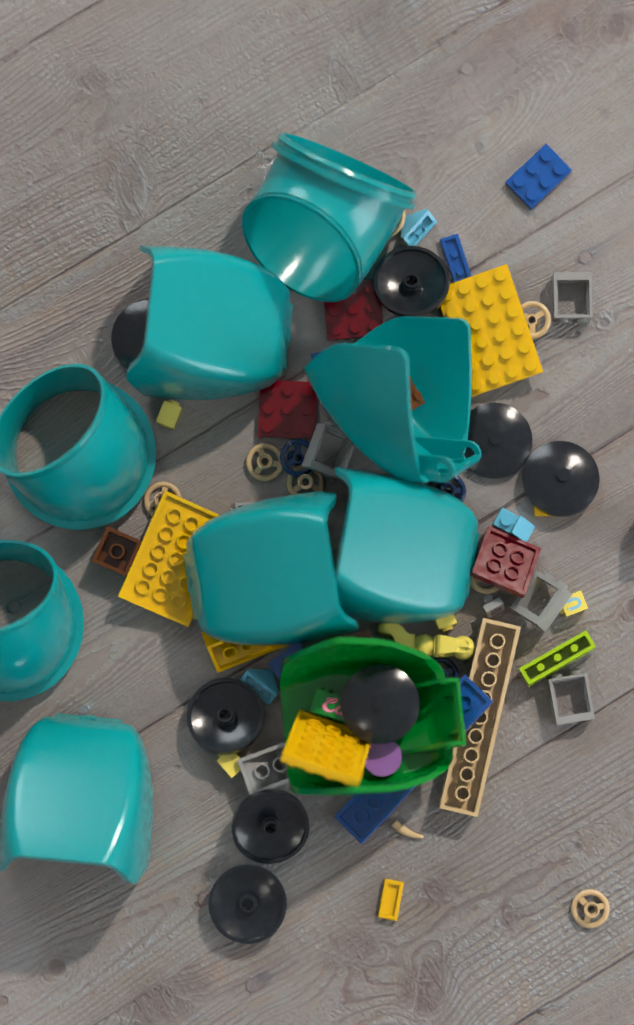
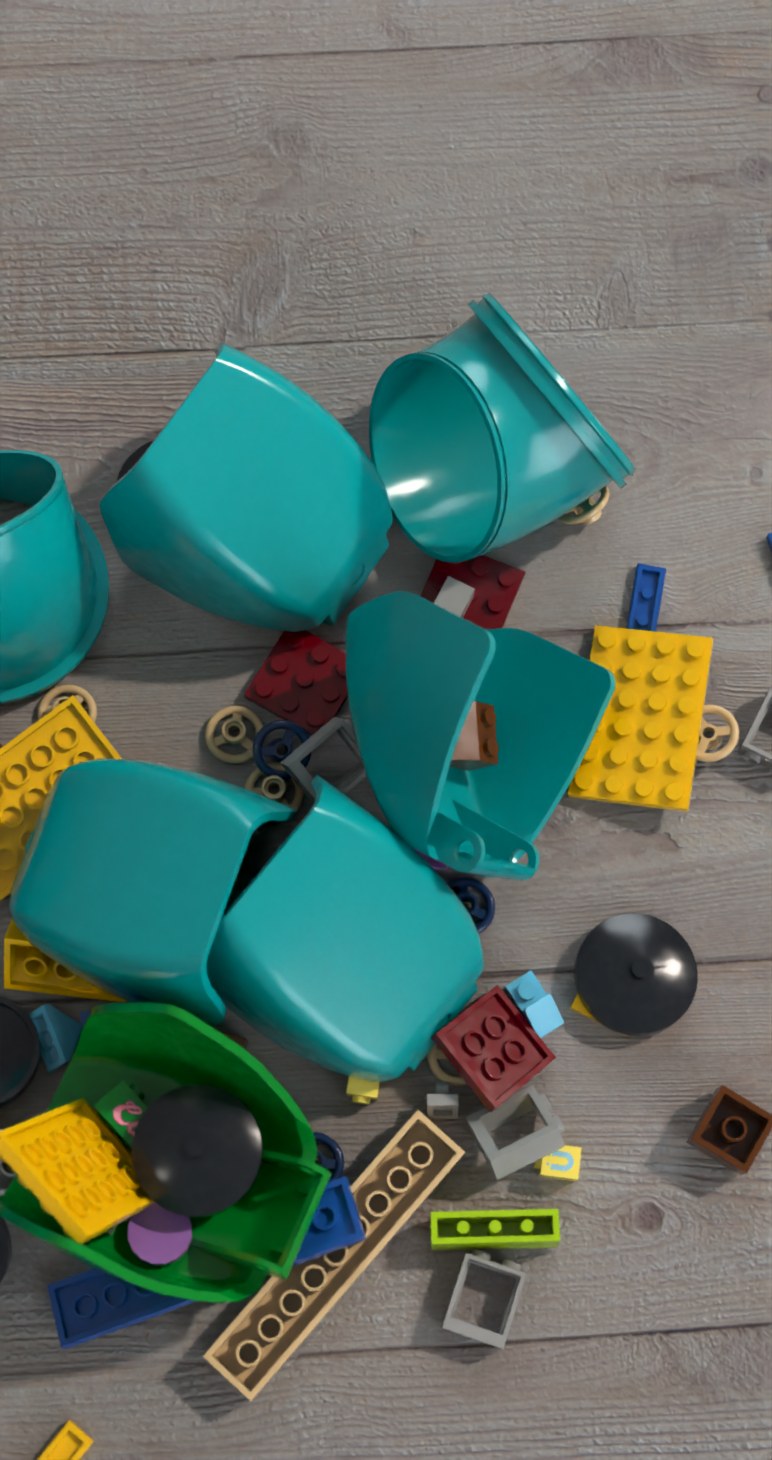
camera: 30 degrees right, 10 degrees down
(169, 414) = (141, 603): light yellow brick -> none
(348, 321) = (455, 596): none -> light grey brick
(400, 828) = (136, 1362): tan helmet -> none
(411, 281) = (568, 596): black dish -> none
(417, 226) = (614, 532): medium azure slope -> none
(439, 646) = (334, 1117): light yellow piece -> none
(502, 437) = (578, 875): black dish -> none

